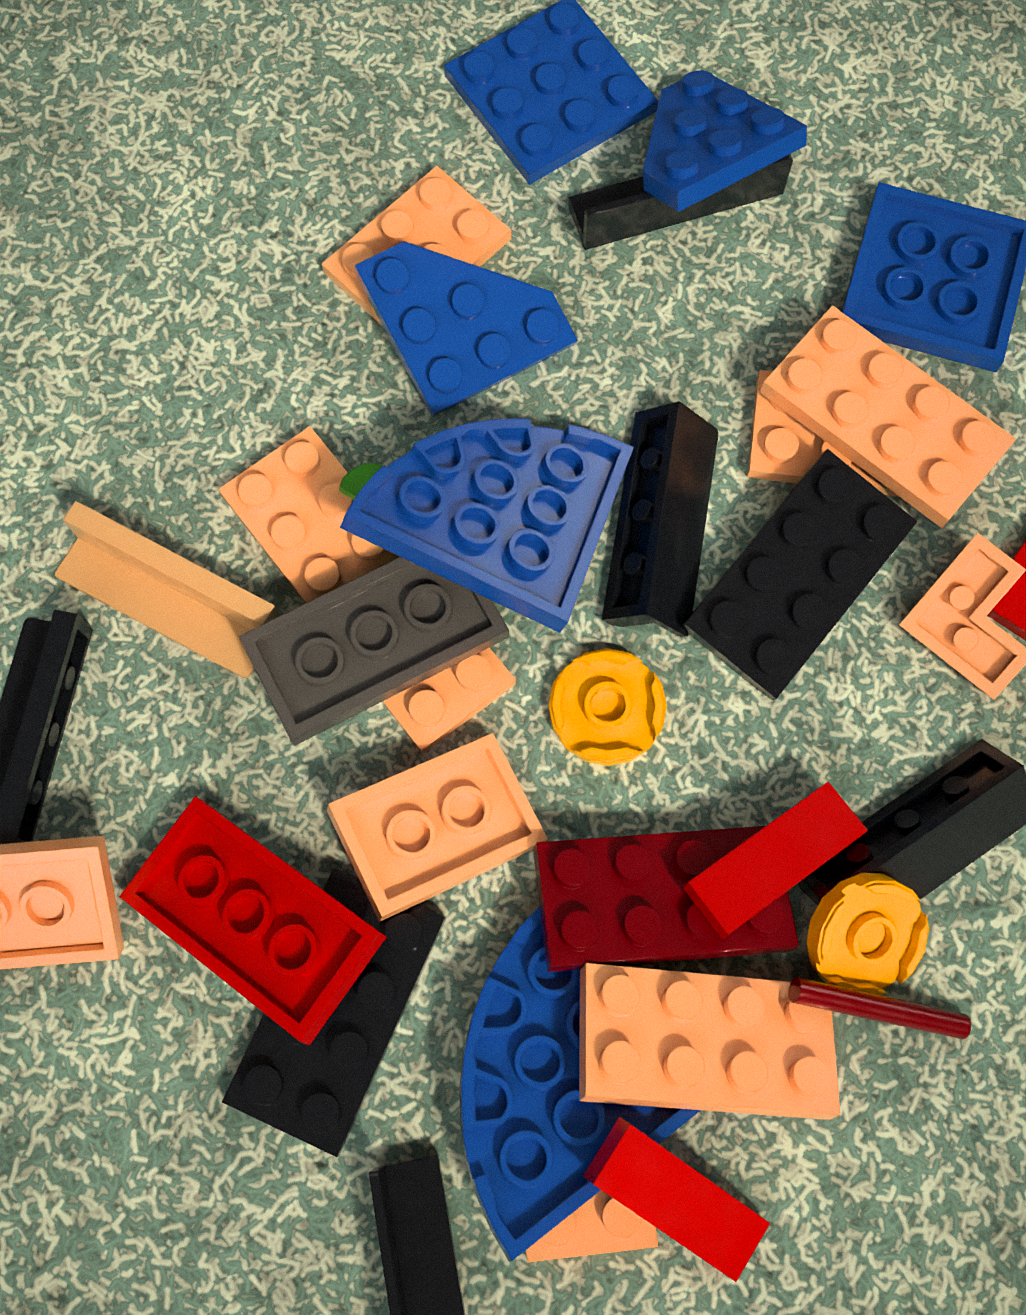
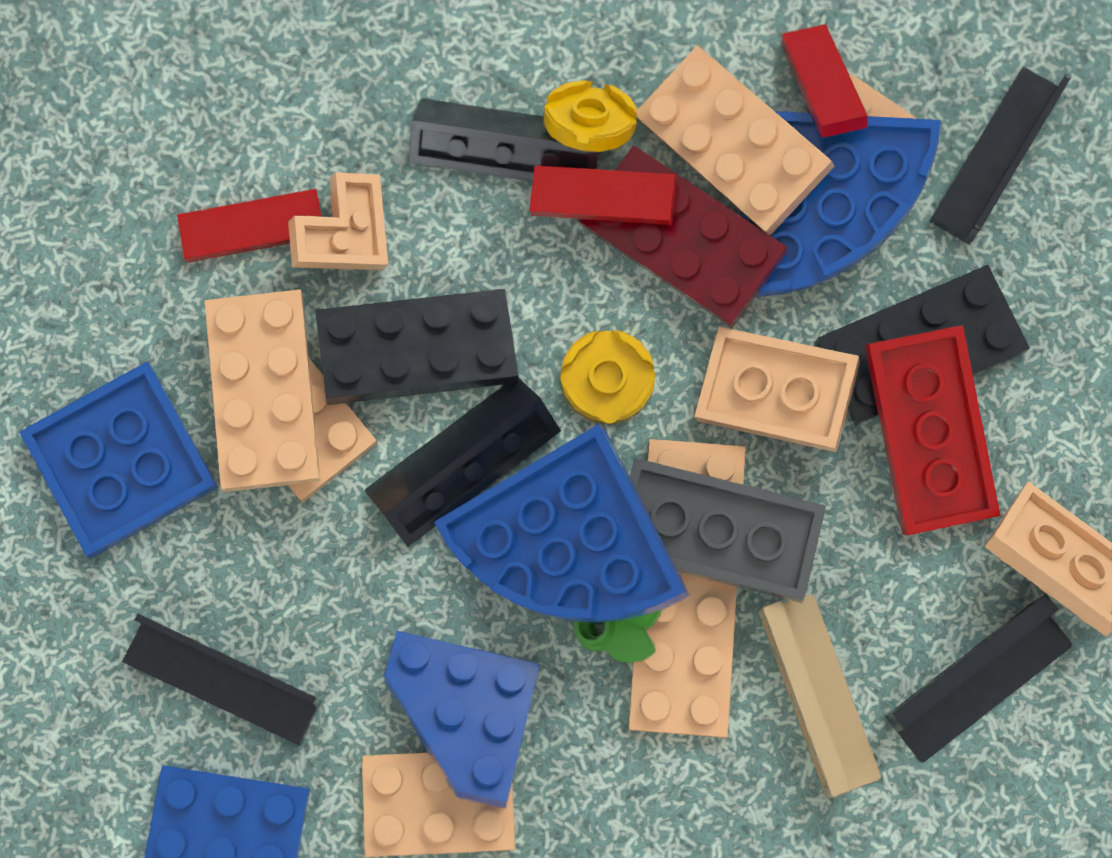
camera: 140 degrees left, 5 degrees up
(711, 138) = (171, 684): blue plate -> none
(879, 1008) = (621, 77): dark red bar -> none

